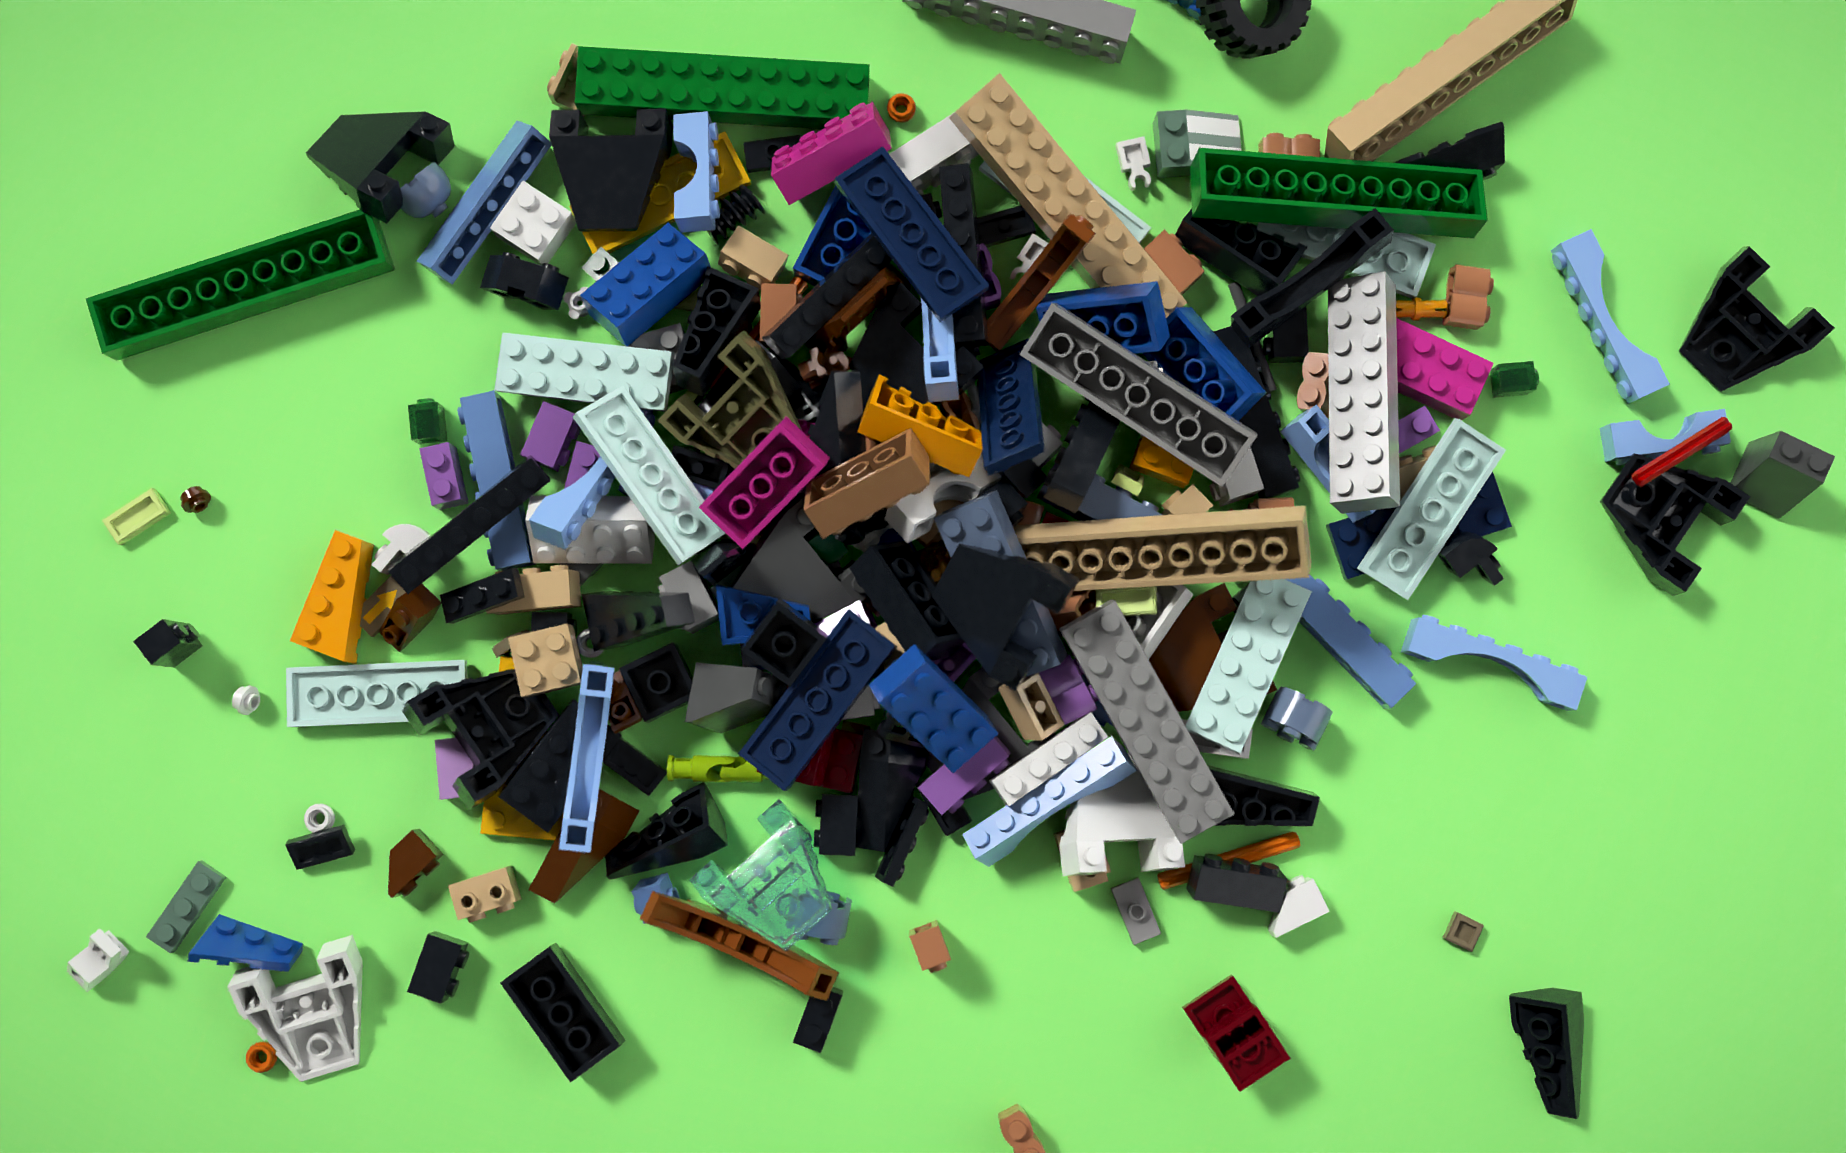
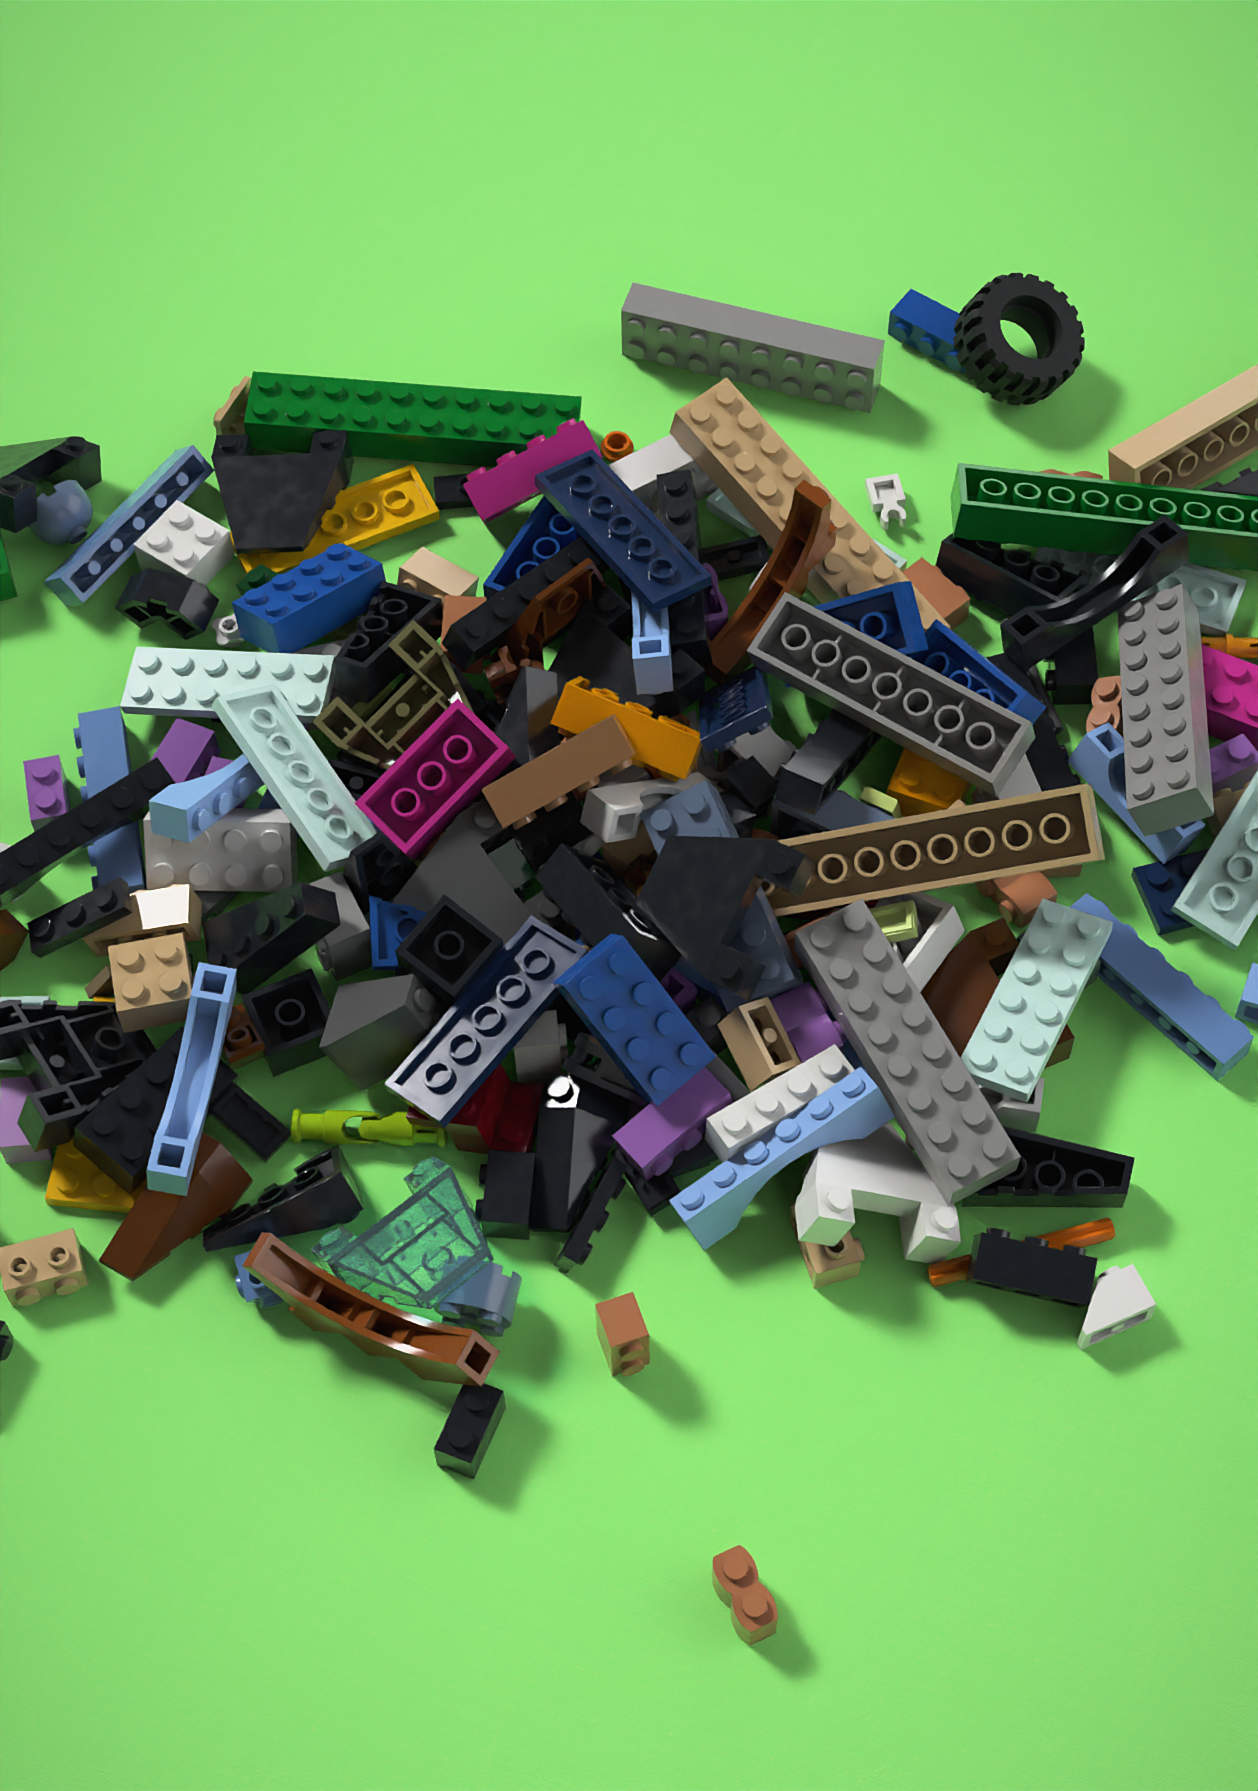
camera: 10 degrees right, 25 degrees down
(427, 421) = (34, 739): clear green brick -> none
(563, 1012) = (129, 1411): black brick -> none
(696, 203) = (375, 516): light blue arch -> none
(735, 211) = (408, 540): black piece -> none
(1135, 911) = (899, 1312): light grey plate -> none
(1183, 131) = (933, 472): sand green slope -> none
(1236, 1033) = (1036, 1454): dark red bracket -> none
(1297, 718) = (1102, 1073): sand blue brick -> none

